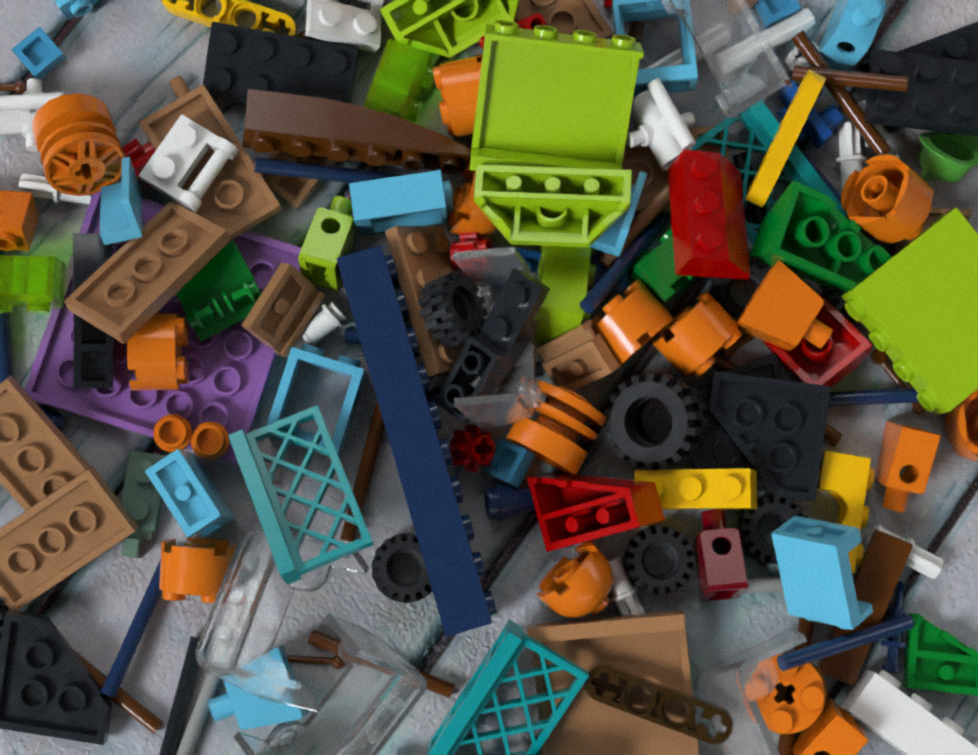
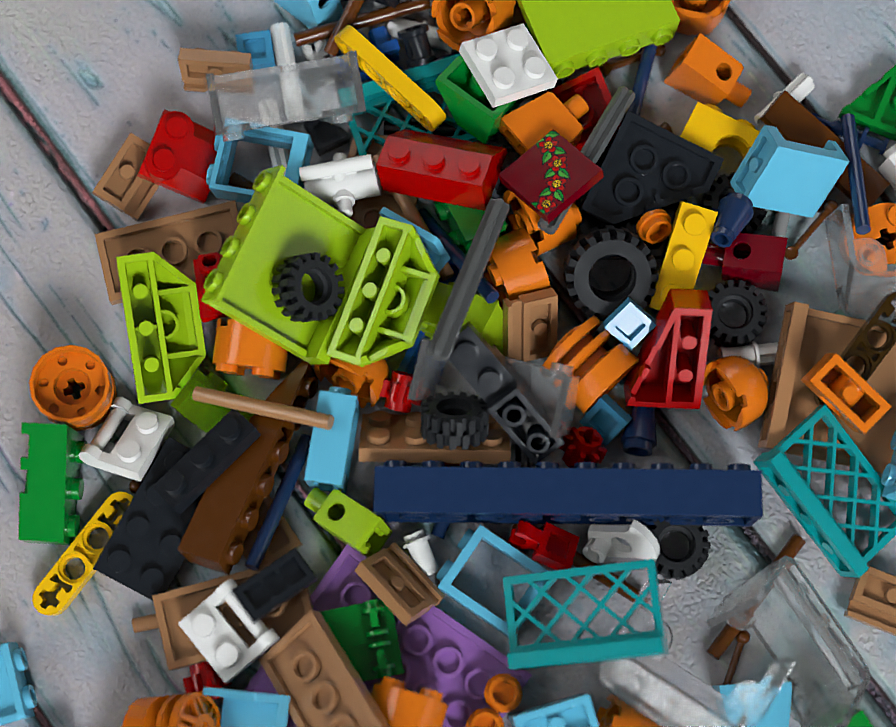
camera: 75 degrees left, 5 degrees down
(241, 190) = (274, 585): none -> black plate
(342, 89) = (206, 461): none -> black plate
(364, 445) = (550, 544): none -> red plate
(390, 511) = (604, 543): none -> white piece
(407, 123) = (263, 408): none -> medium nougat bar
(541, 145) = (325, 287): none -> black tyre
(593, 275) = (468, 280): none -> dark grey axle
(602, 690) = (846, 393): none -> orange brick
(608, 453) = (629, 323): none -> plate
(706, 102) = (325, 136): none -> black tile
(720, 451) = (654, 226): none -> orange plate
(730, 326) = (551, 176): none -> dark red tile
(746, 603) = (792, 251): none -> reddish brown hinge
(750, 524) = (732, 217): none -> dark blue cone
(763, 359) = (598, 141): none -> dark grey axle
(832, 156) = (417, 45): none -> black bush
(836, 249) = (508, 65): none -> white plate

